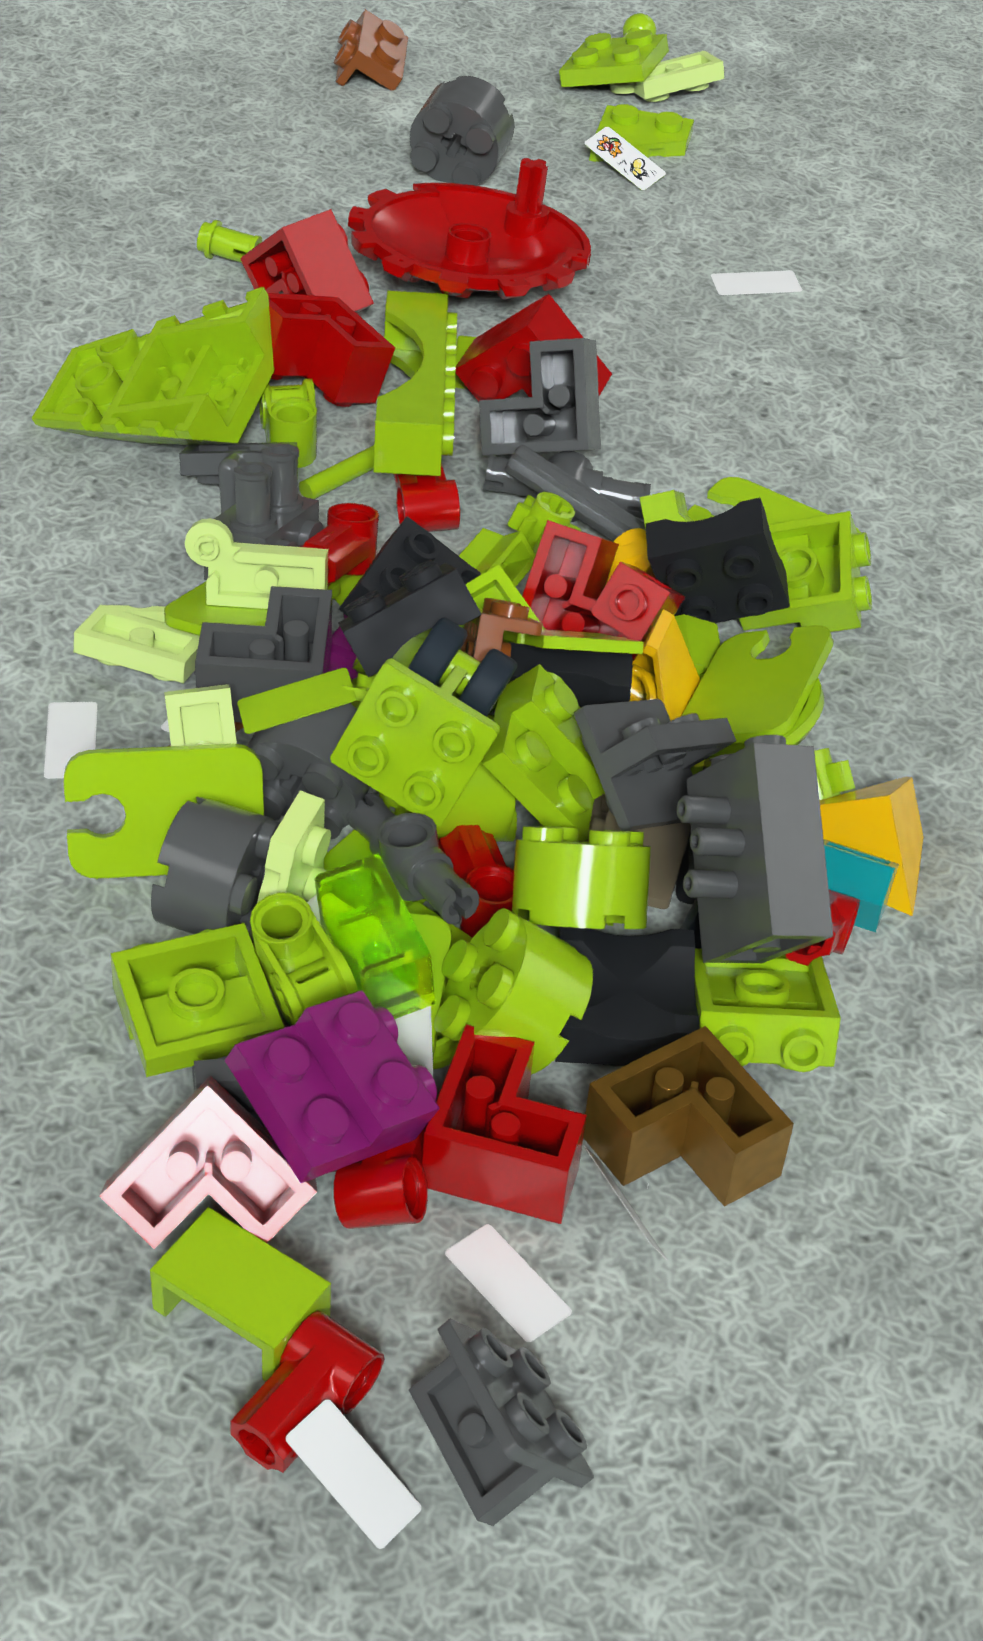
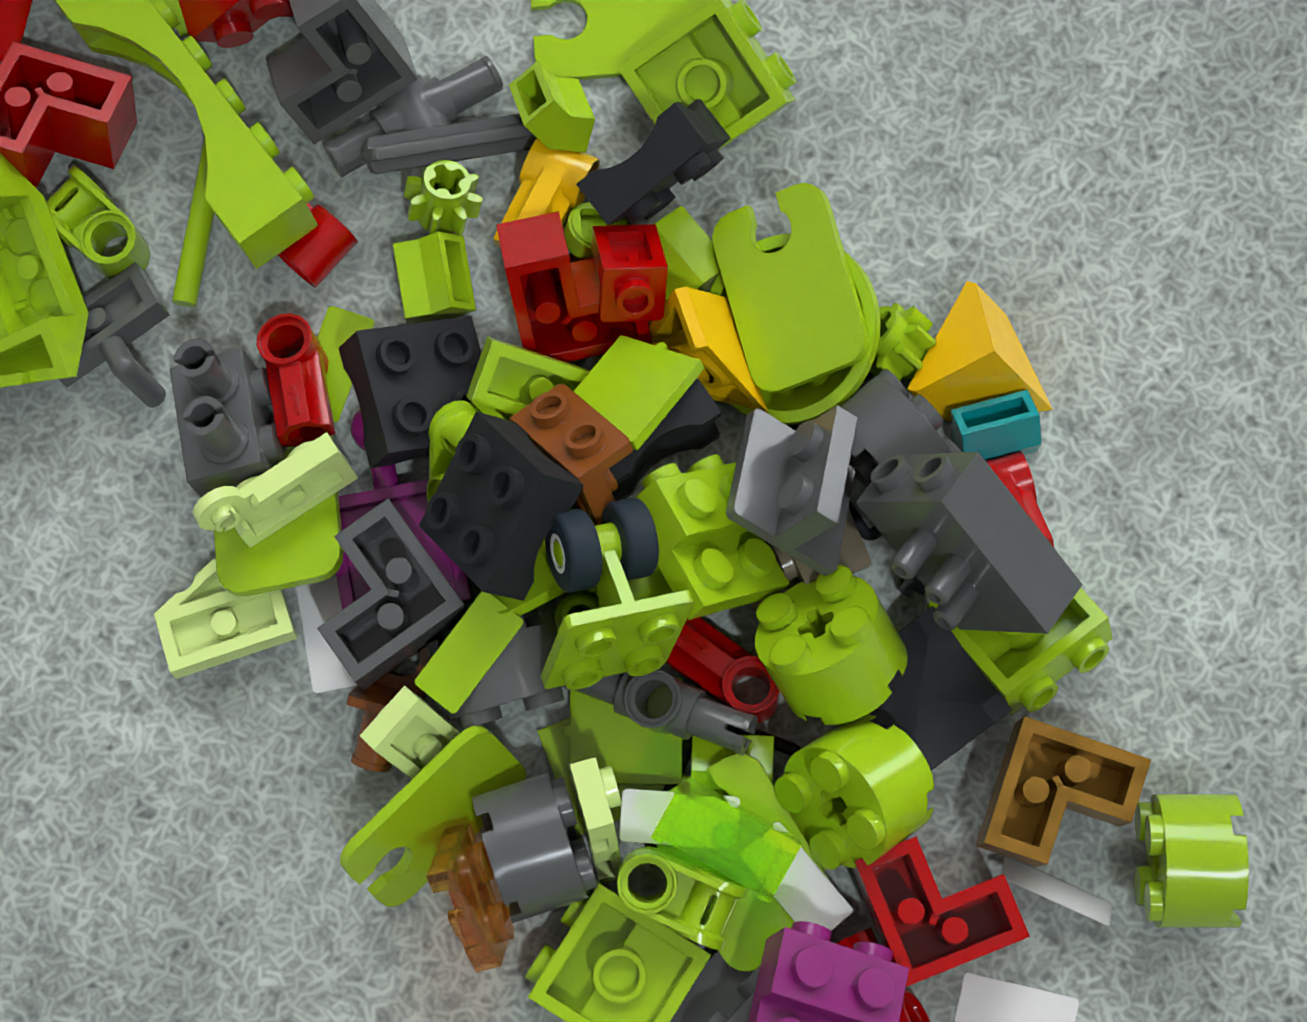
camera: 30 degrees left, 35 degrees up
(69, 731) = (255, 766): white sticker -> none
(130, 865) = (477, 918): none -> clear orange wing
(768, 1235) = (1192, 860): none -> lime brick

